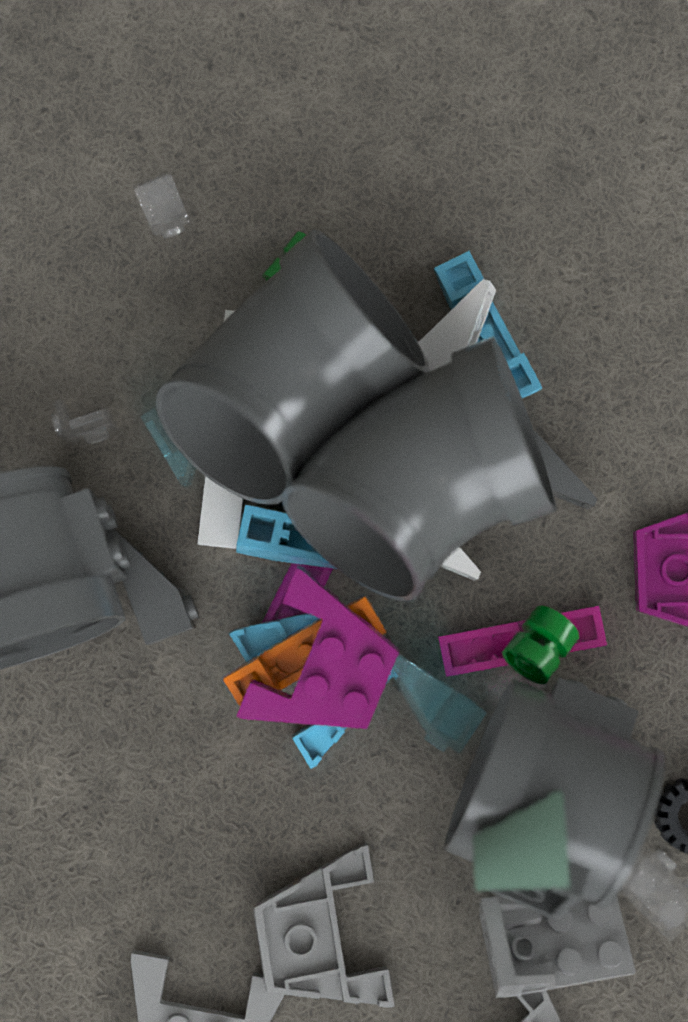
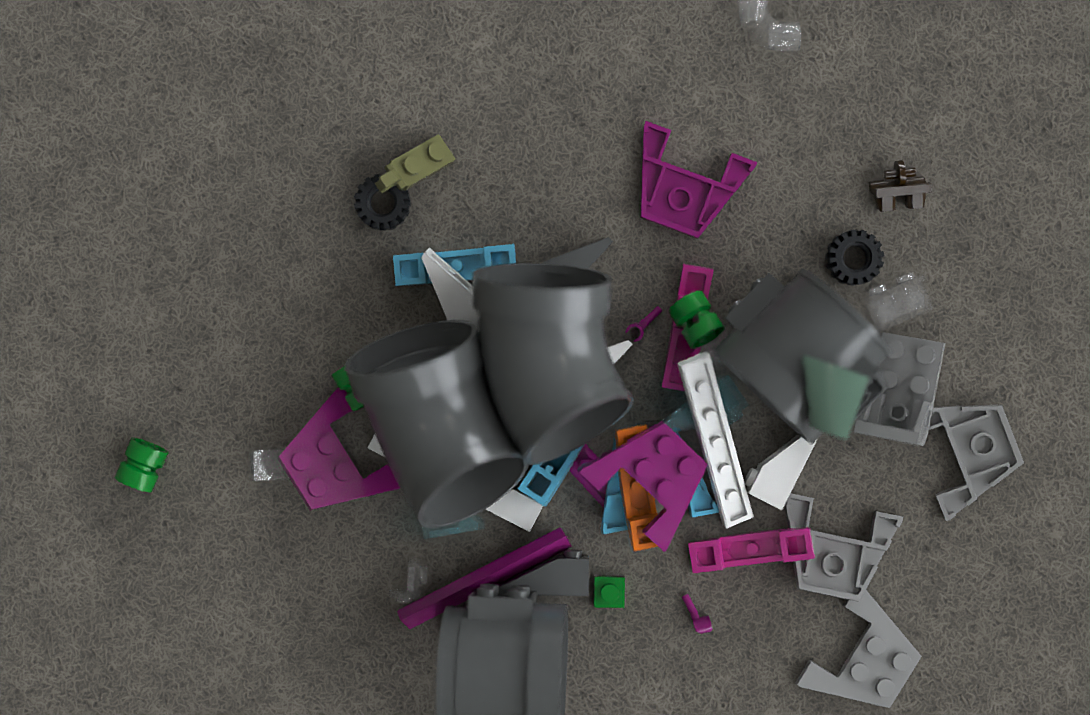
camera: 65 degrees left, 5 degrees up
(108, 50) = (141, 465): none -> green wheel
(131, 519) = (492, 573): none -> magenta tile
(160, 671) = (609, 591): none -> green plate
(162, 801) = (700, 624): none -> magenta hand
(184, 259) = (322, 466): none -> magenta wing
(280, 828) = (751, 548): none -> dark pink slope
(387, 825) = (778, 473): none -> white slope
(402, 726) = (715, 439): none -> white tile
(507, 586) = (645, 322): none -> magenta hand
(537, 195) = (381, 221): none -> black tyre
(588, 236) = (416, 165): none -> olive hinge

